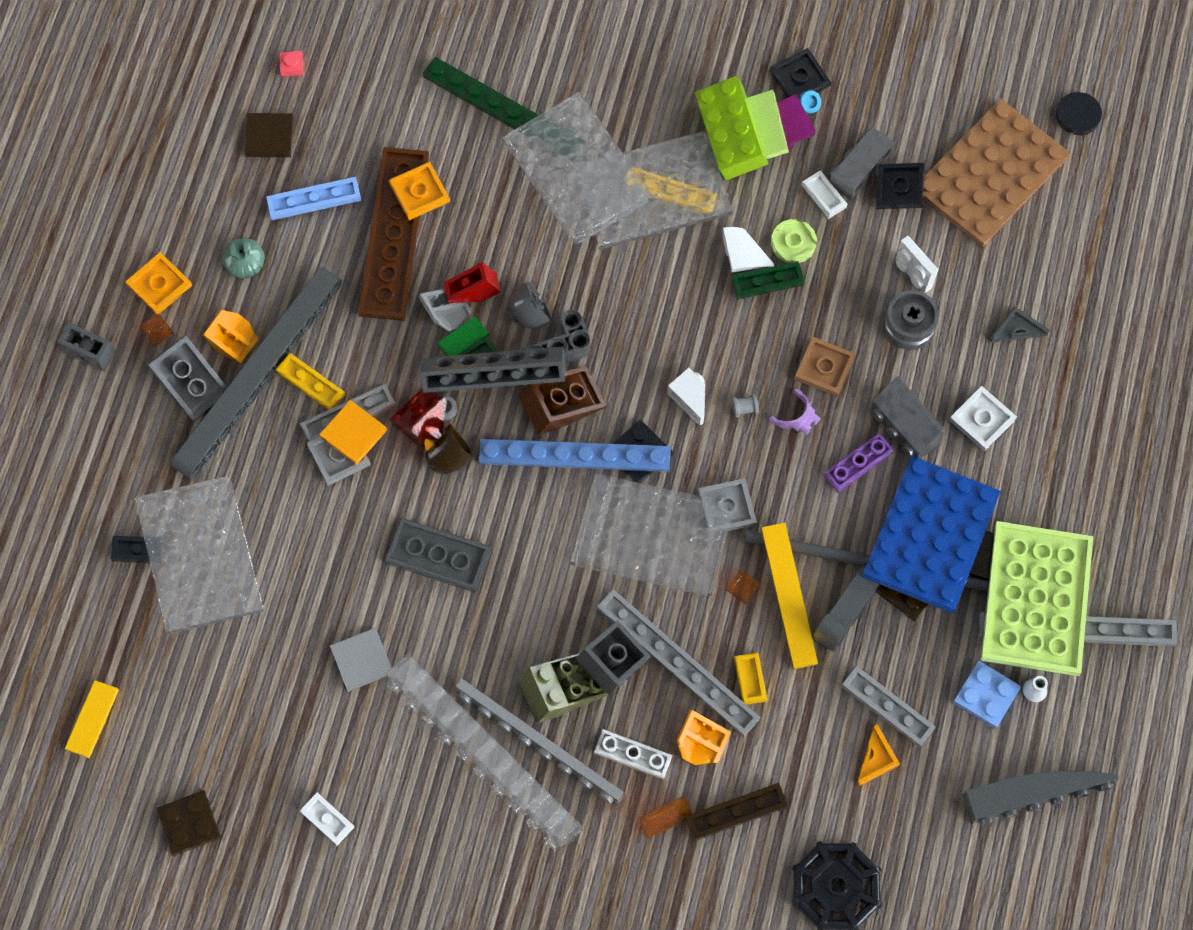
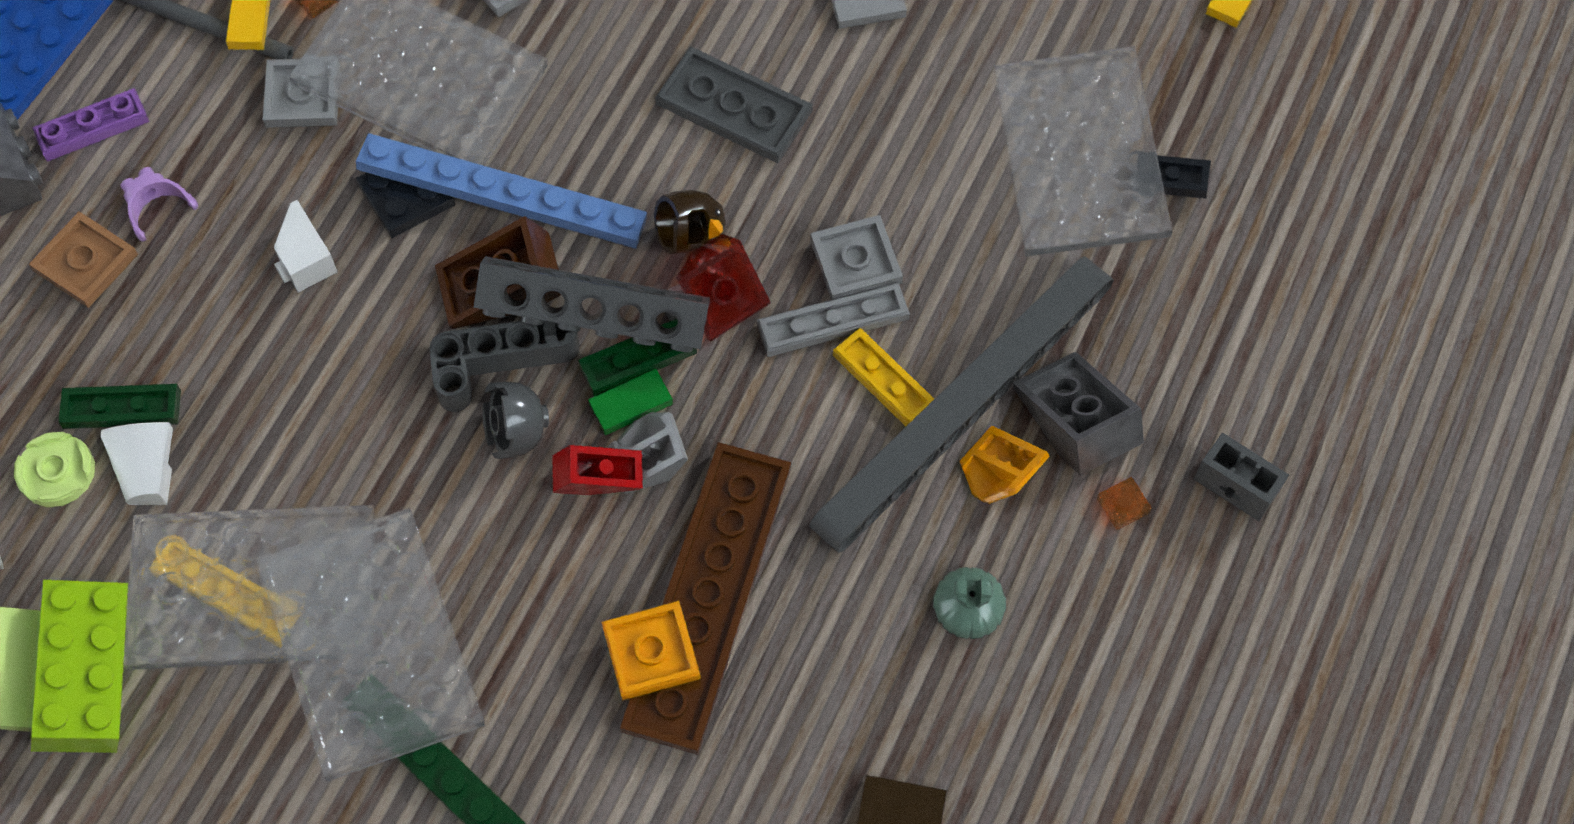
camera: 170 degrees left, 5 degrees down
(158, 283) = (1116, 575): light orange plate -> none
(313, 198) = (835, 681): light blue plate -> none
(353, 432) = (828, 272): light orange tile -> none
(745, 405) = (224, 222): light grey bush -> none

